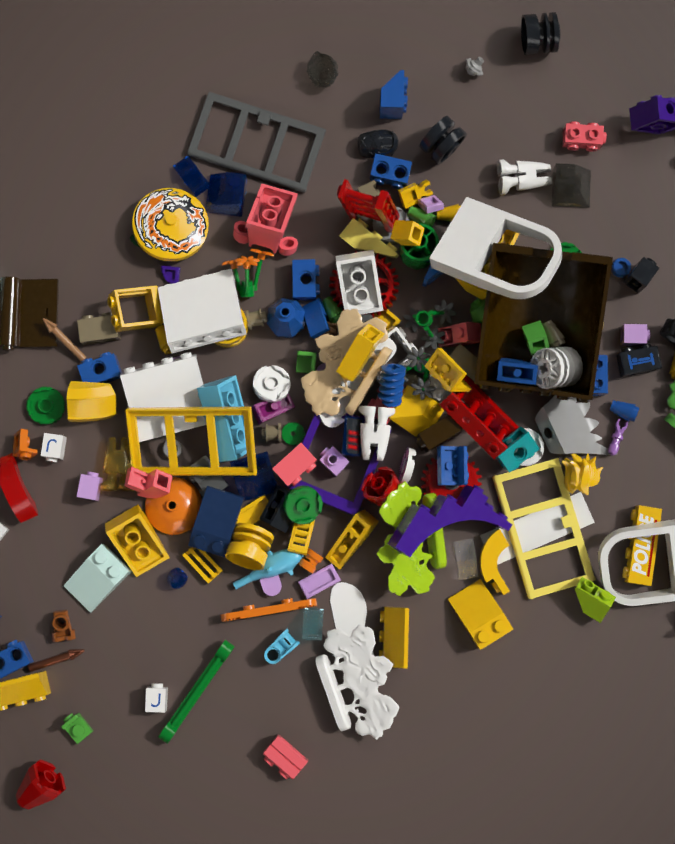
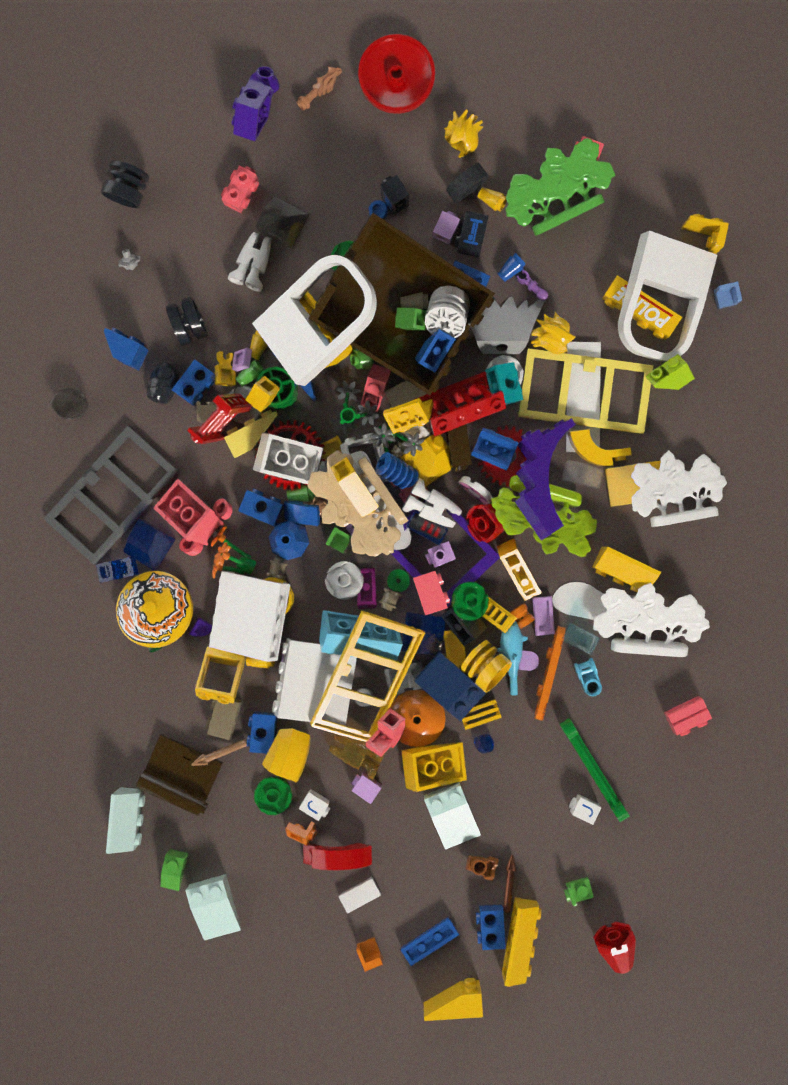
camera: 65 degrees left, 5 degrees up
(493, 645) = (673, 484): none -> white plant

